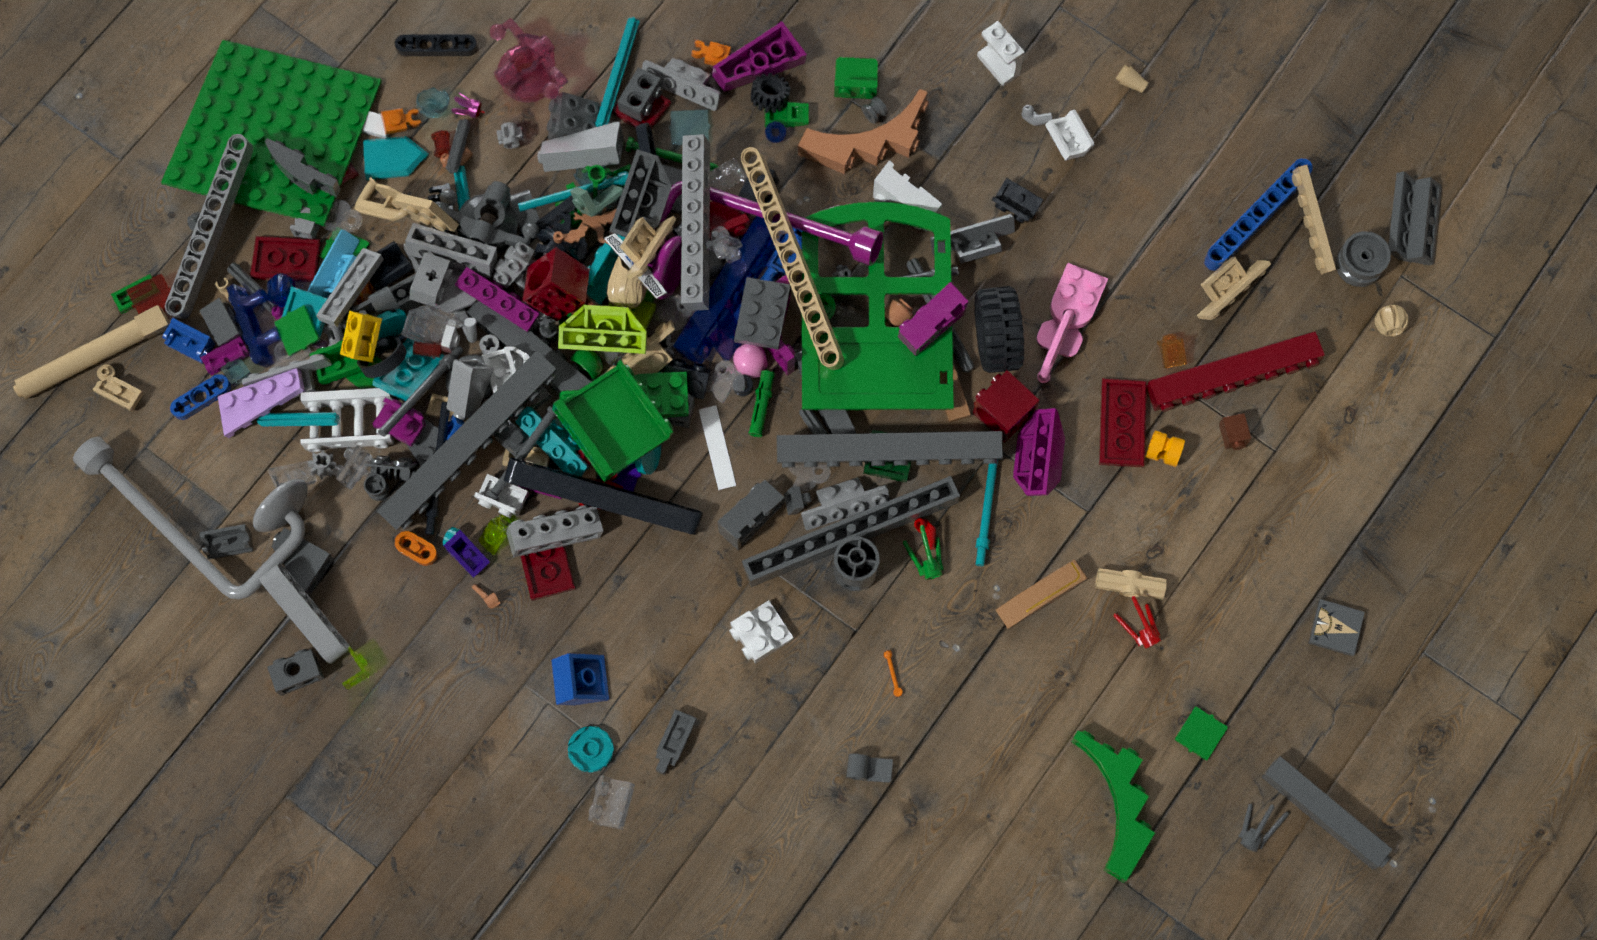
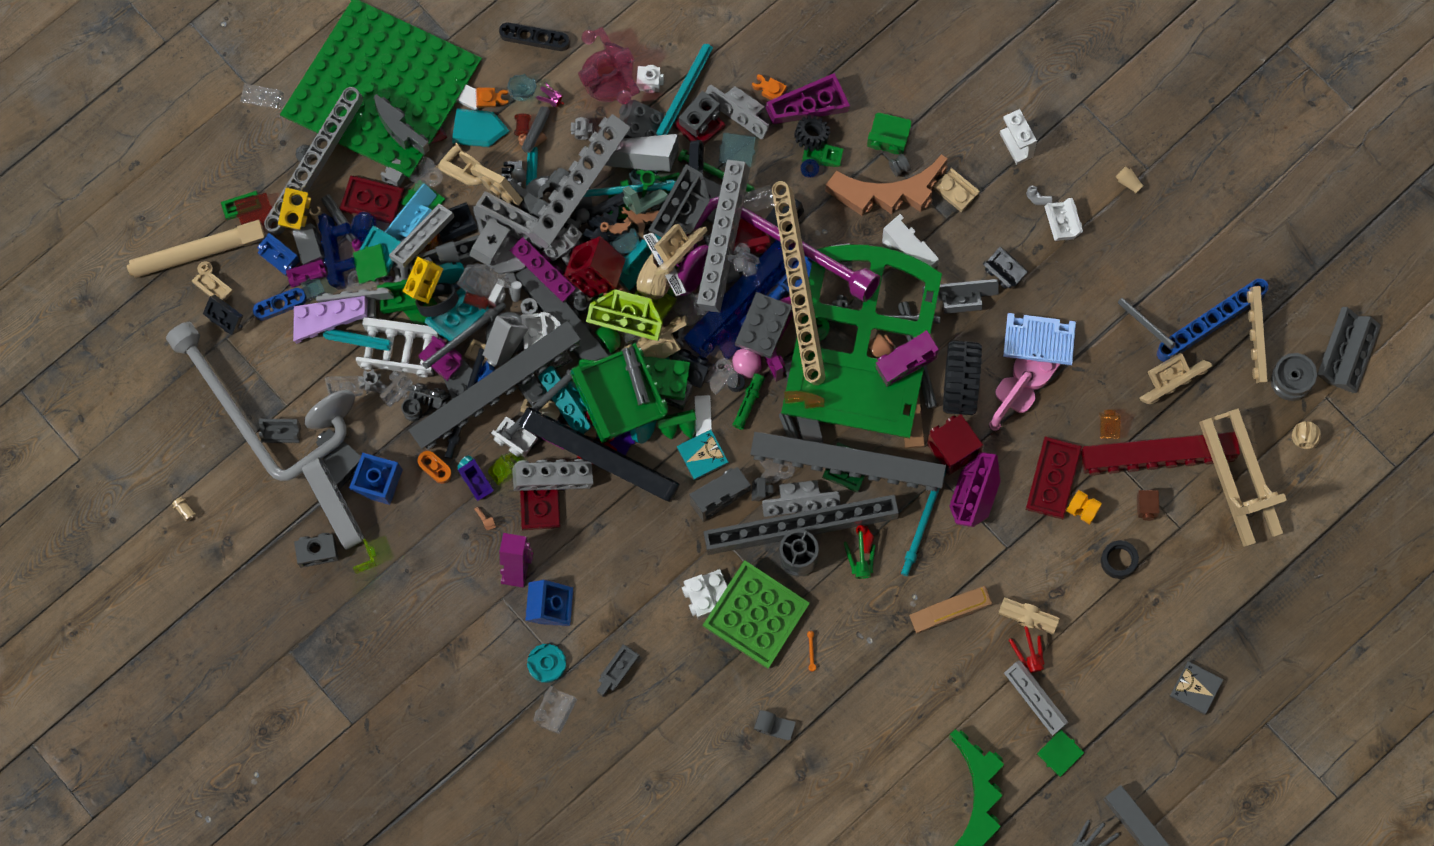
camera: 15 degrees right, 0 degrees up
(130, 654) = (182, 507): none -> tan pin
(136, 166) = (261, 96): none -> clear hinge
(136, 421) = (223, 315): none -> black bracket
(189, 285) = (289, 208): none -> yellow brick
(350, 574) = (376, 478): none -> blue slope
(492, 259) = (617, 130): none -> light grey brick
(530, 633) = (515, 556): none -> magenta wedge
(575, 66) = (649, 78): none -> white brick
(586, 250) = (626, 242): none -> clear light blue hair
(624, 389) = (635, 375): none -> dark grey pin
(693, 437) = (685, 419): none -> green tile
(721, 474) = (702, 454): none -> teal tile
(821, 644) = (755, 614): none -> bright green plate
(832, 387) = (810, 400): none -> clear orange slope
(943, 126) = (956, 190): none -> tan plate
(1073, 269) = (1038, 338): none -> light blue window
(1160, 675) = (1036, 697): none -> light grey plate
(1188, 231) = (1146, 323): none -> dark grey bar
(1224, 484) = (1119, 545): none -> black tyre
(1366, 398) = (1265, 499): none -> tan piece

